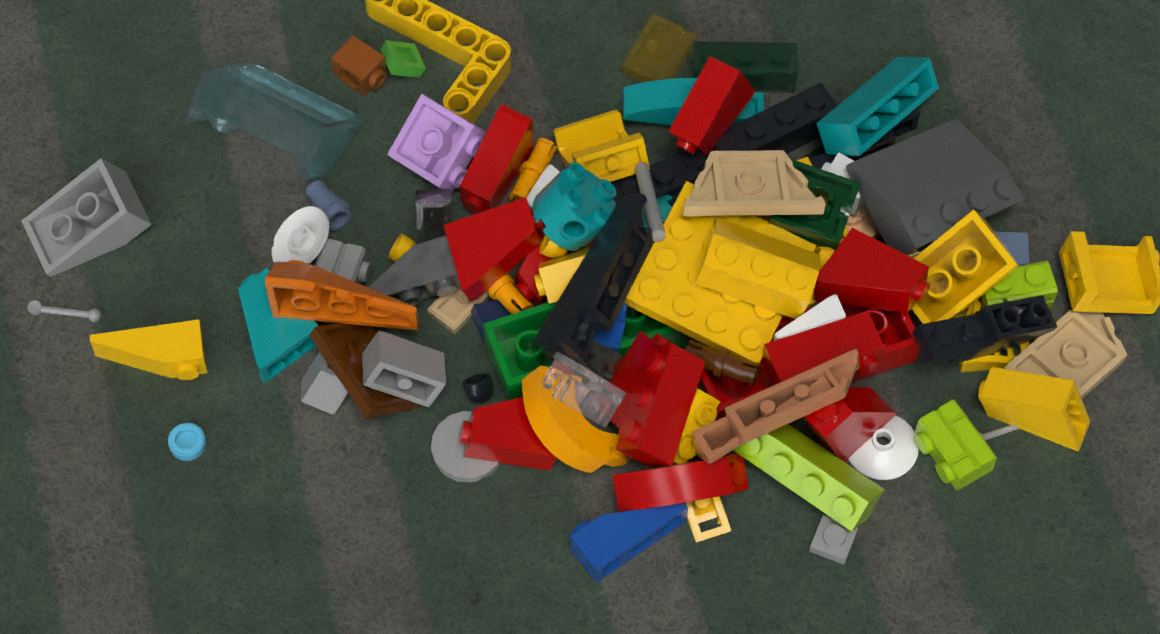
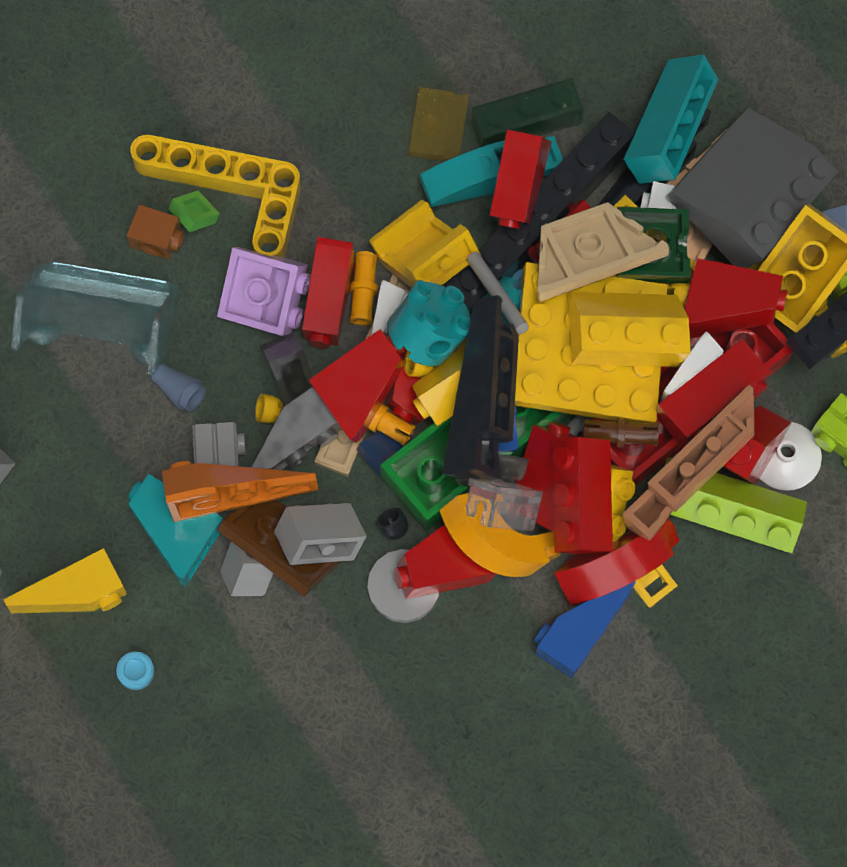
camera: 20 degrees left, 10 degrees up
(301, 236) = (167, 430): white dish -> none
(832, 540) = (773, 565): light grey plate -> none

